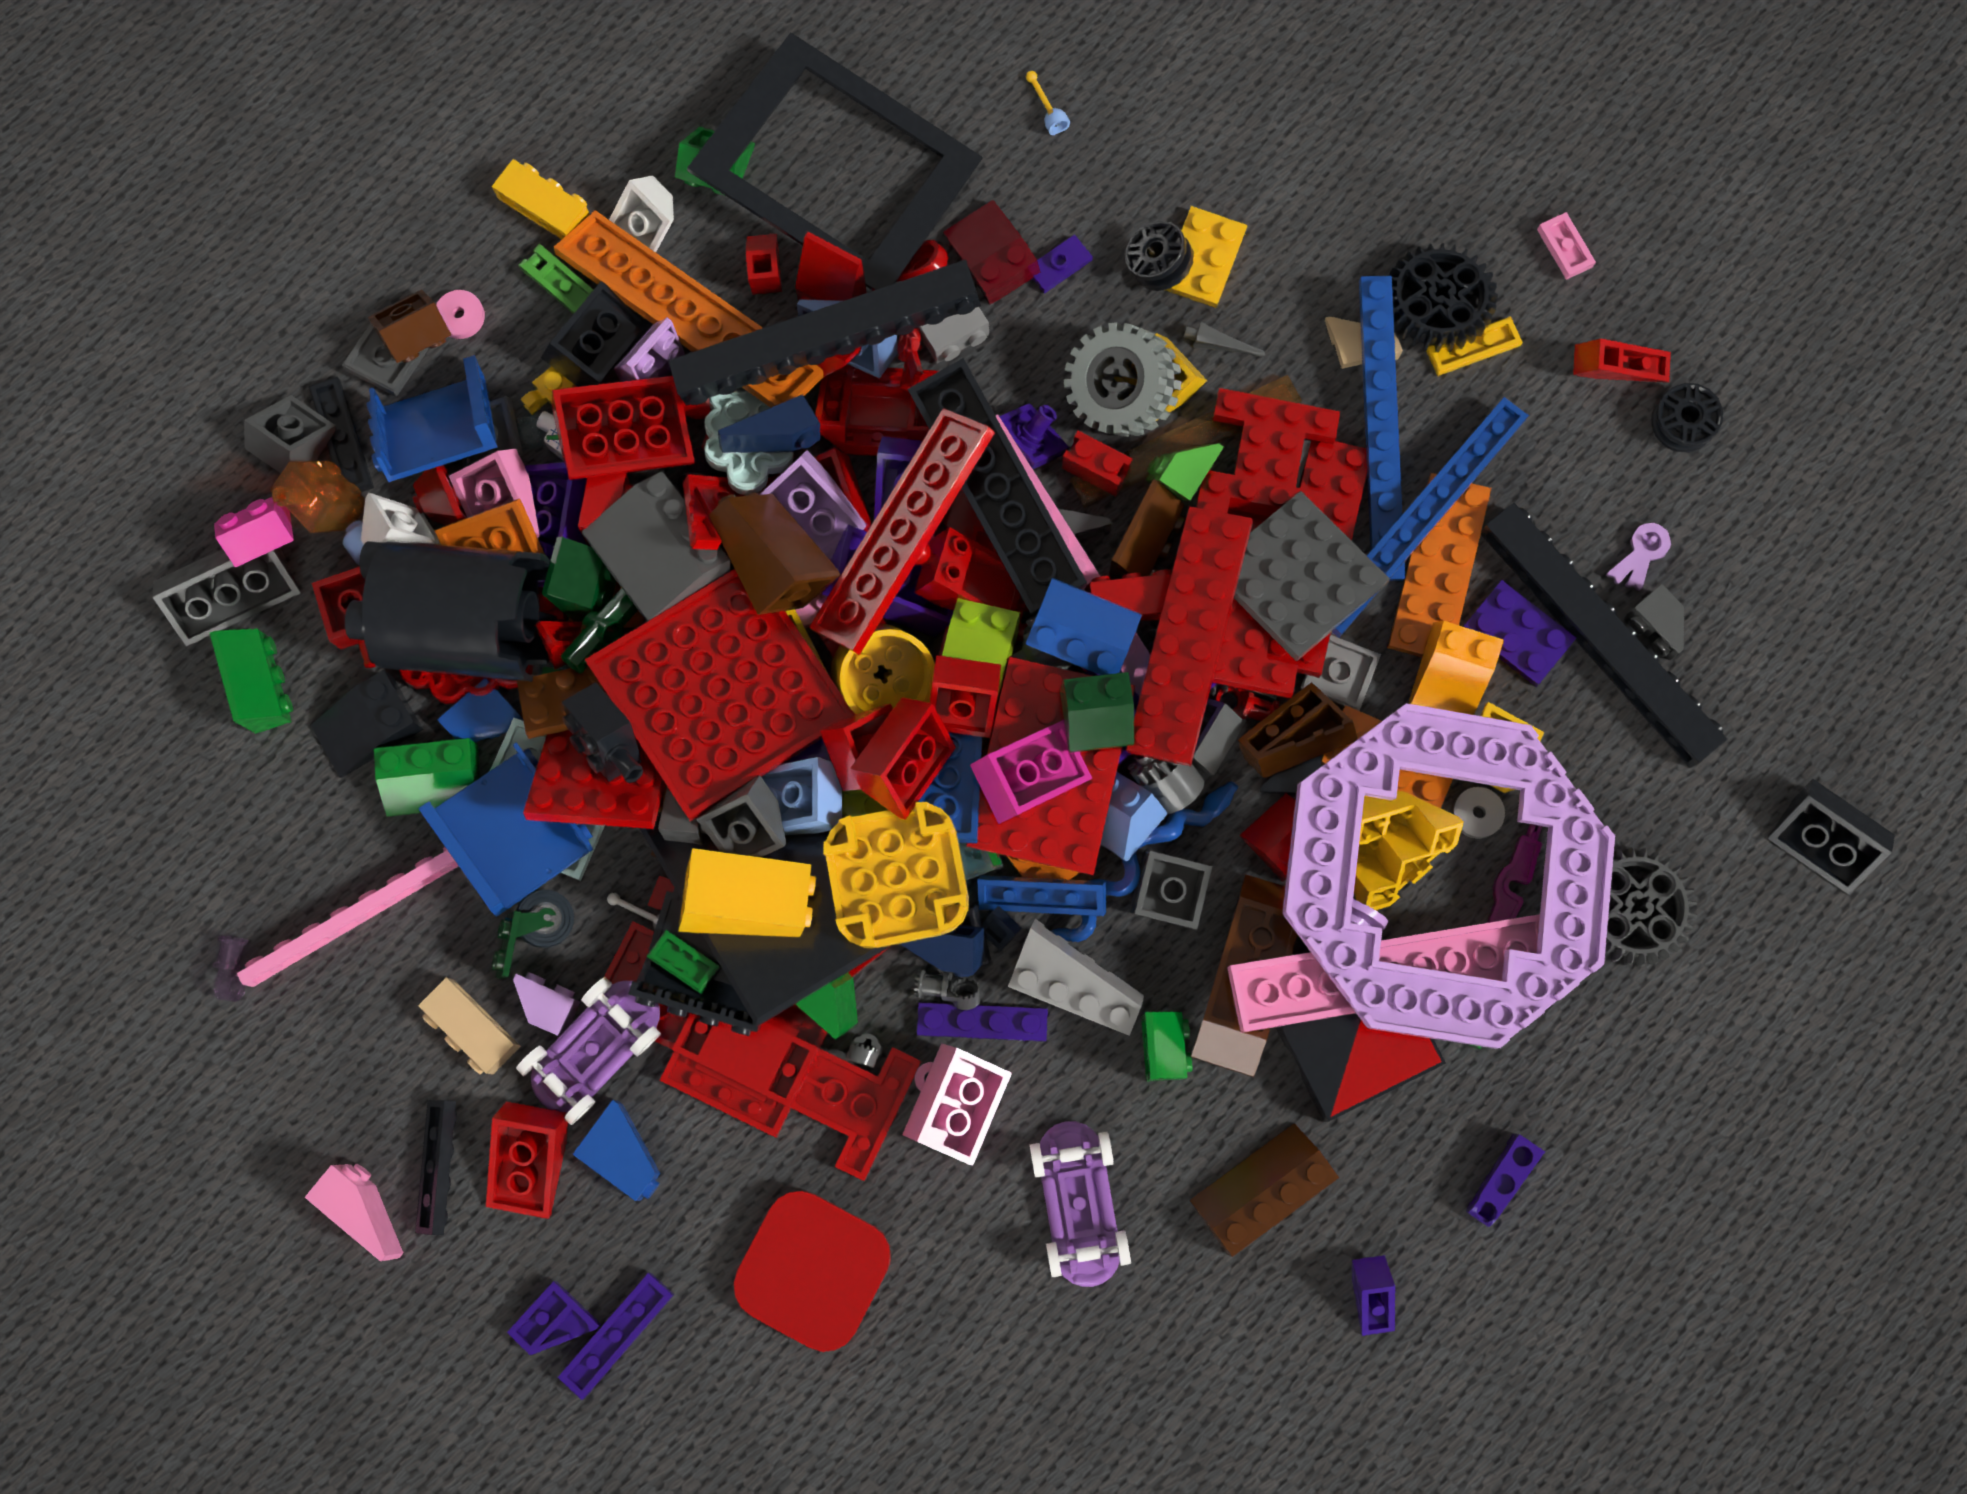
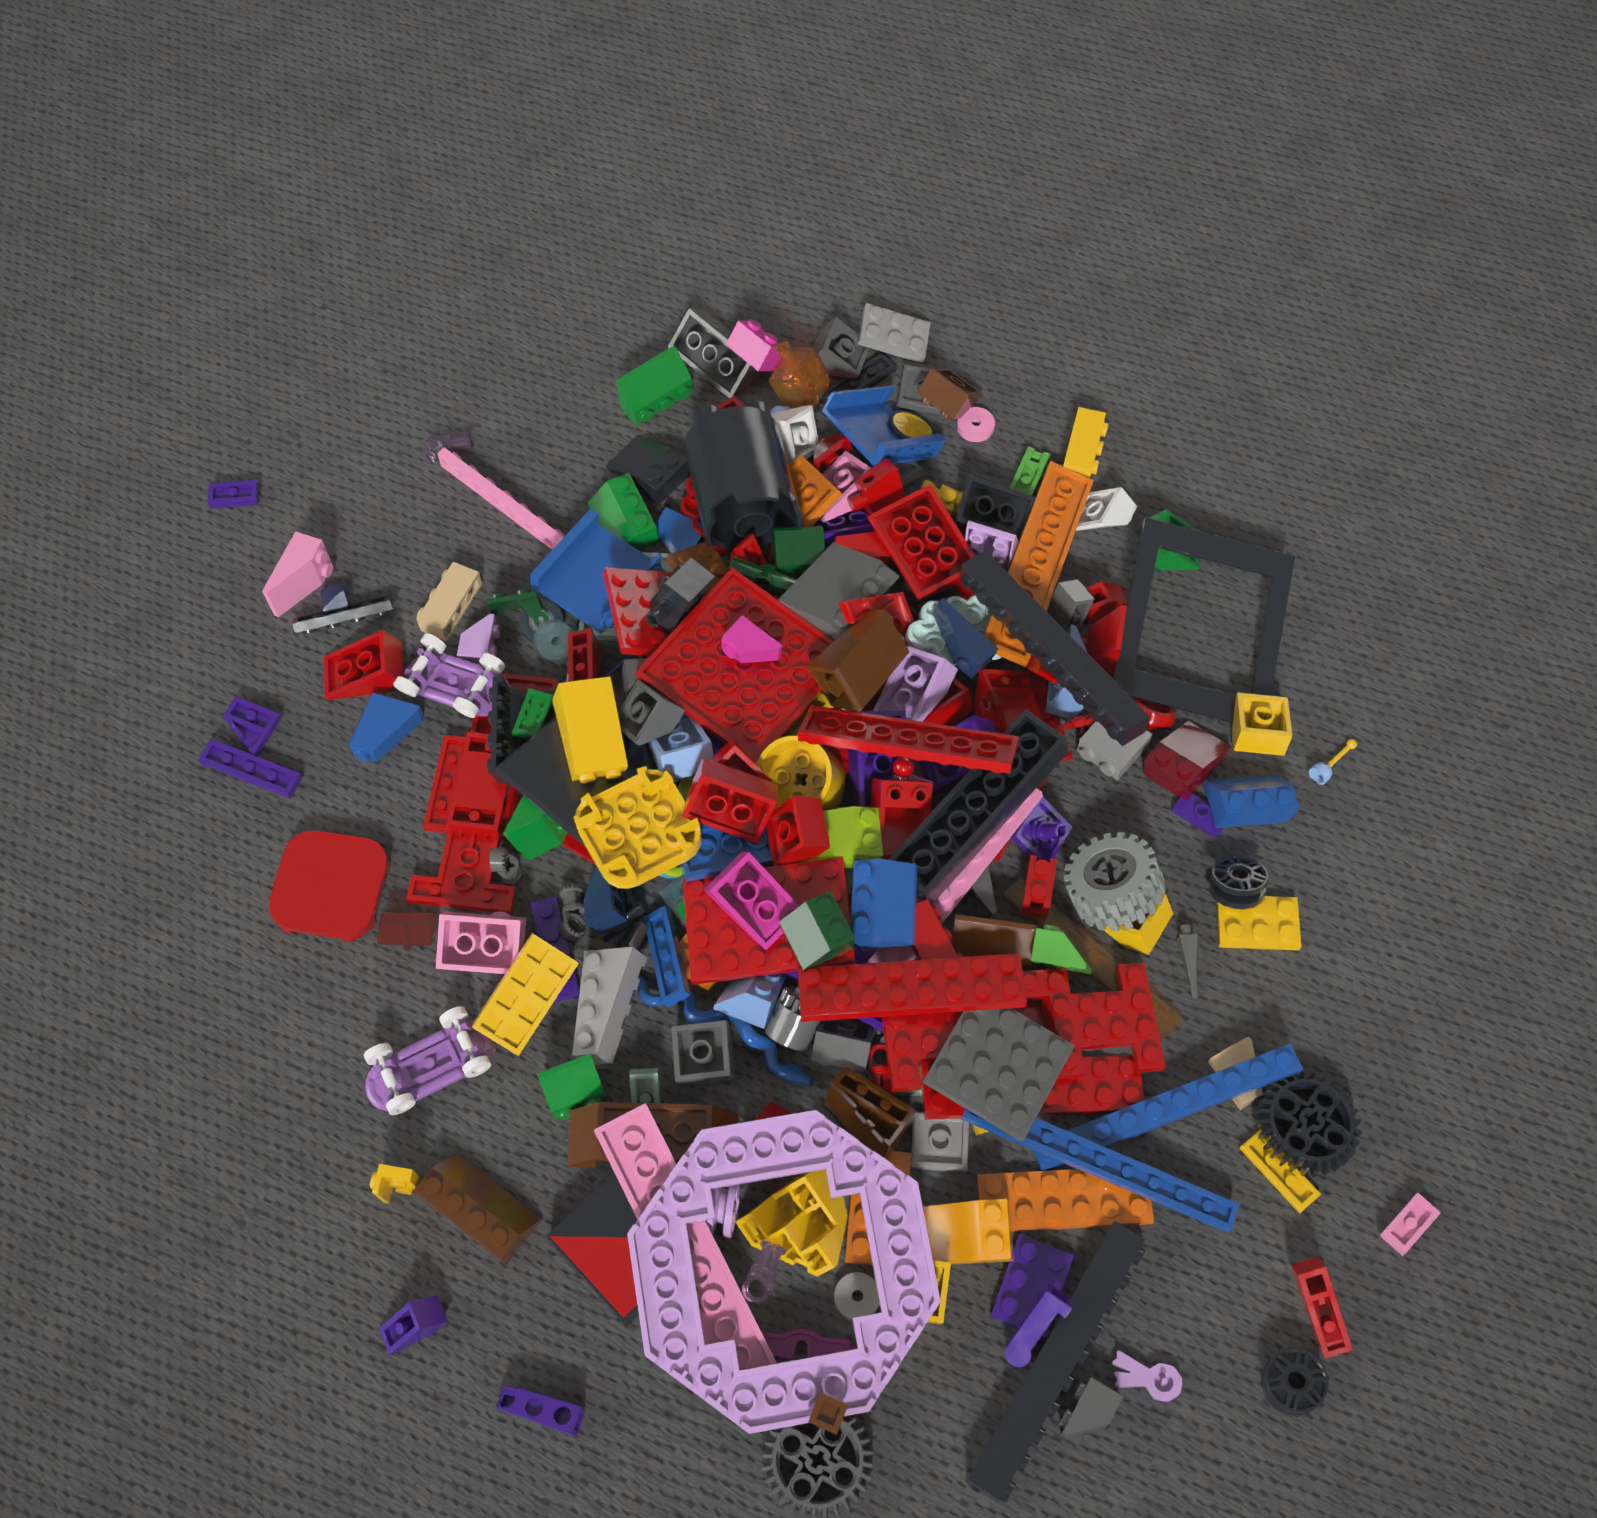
camera: 70 degrees right, 15 degrees down
(190, 1272) = (233, 494): none -> dark purple plate
(287, 361) = (894, 333): none -> light grey plate
(408, 1172) = (334, 598): none -> dark blue slope
(437, 389) = (909, 425): none -> yellow wheel
(527, 454) = (877, 488): none -> red torso
(565, 910) = (544, 635): none -> clear light blue piece
(627, 881) = (583, 655): none -> red slope
(701, 671) = (750, 643): none -> dark pink slope
(761, 297) = (1070, 604): none -> dark grey slope
(906, 1189) = (406, 929): none -> clear red panel
(981, 156) = (1261, 724): none -> yellow slope
(1038, 1069) = (524, 994): none -> yellow plate
(1064, 204) = (1251, 800): none -> blue slope
(1194, 967) = (645, 1085): none -> sand green slope
(1211, 1271) = (392, 1177): none -> yellow bracket
(1455, 893) = (764, 1272): none -> clear purple connector
(1568, 641) = (1035, 1323): none -> dark purple leg
(1611, 876) = (828, 1413): none -> reddish brown plate

